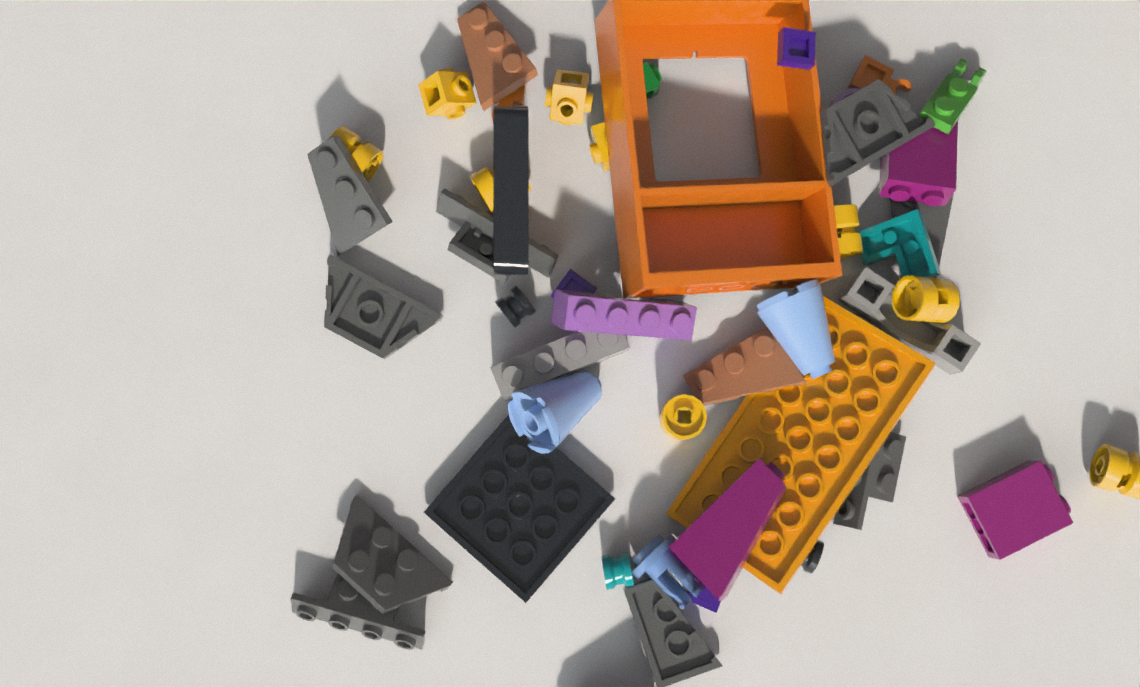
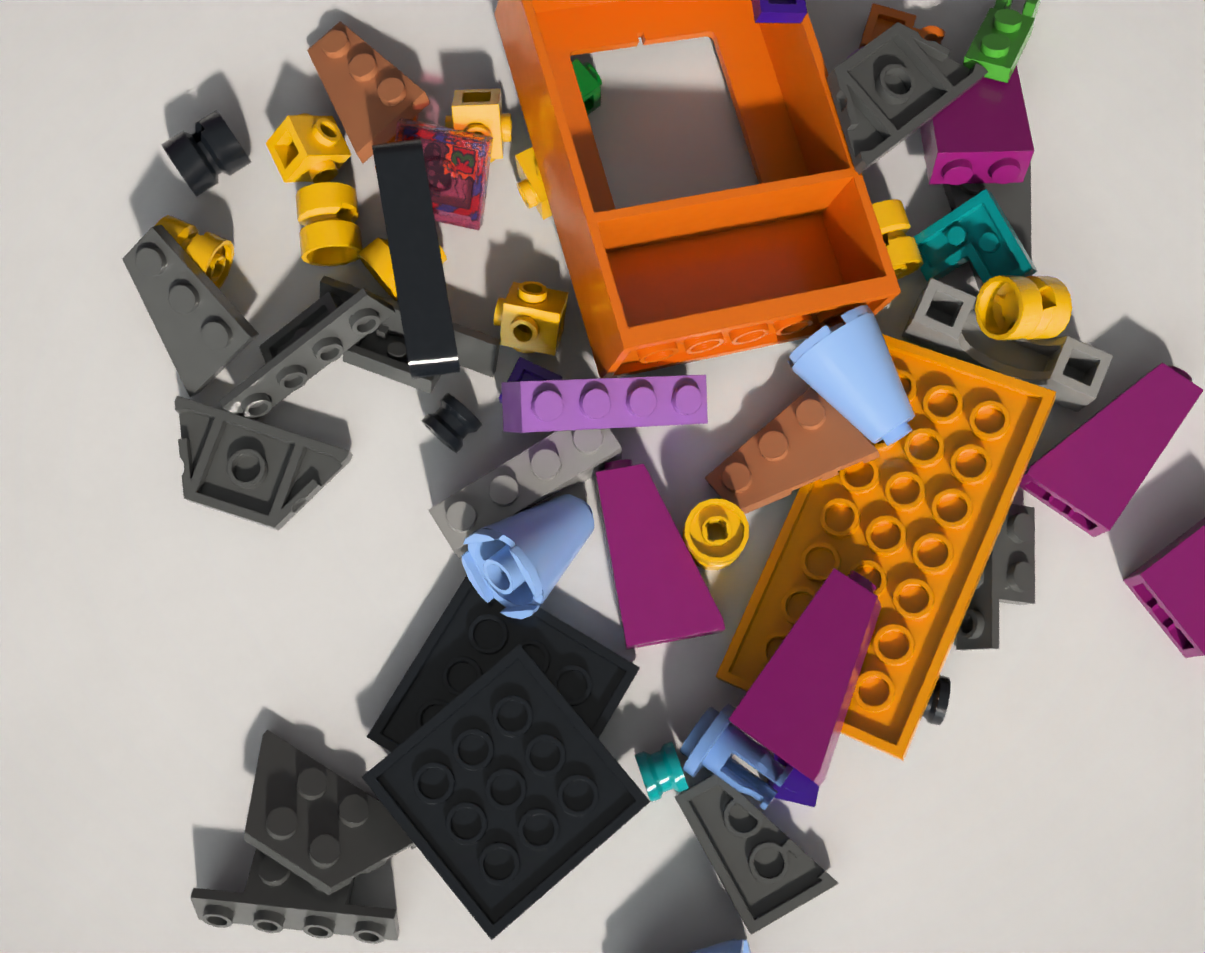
camera: 10 degrees left, 5 degrees down
(374, 84) = (206, 153): none -> black wheel
(423, 236) = (306, 348): none -> dark grey bracket
(453, 148) = (329, 219): none -> yellow wheel
(511, 565) = (505, 791): none -> black plate
(548, 126) = (455, 169): none -> clear pink tile
(583, 243) = (531, 317): none -> yellow brick
(635, 432) = (652, 569): none -> magenta slope
(965, 409) = (1109, 455): none -> magenta slope

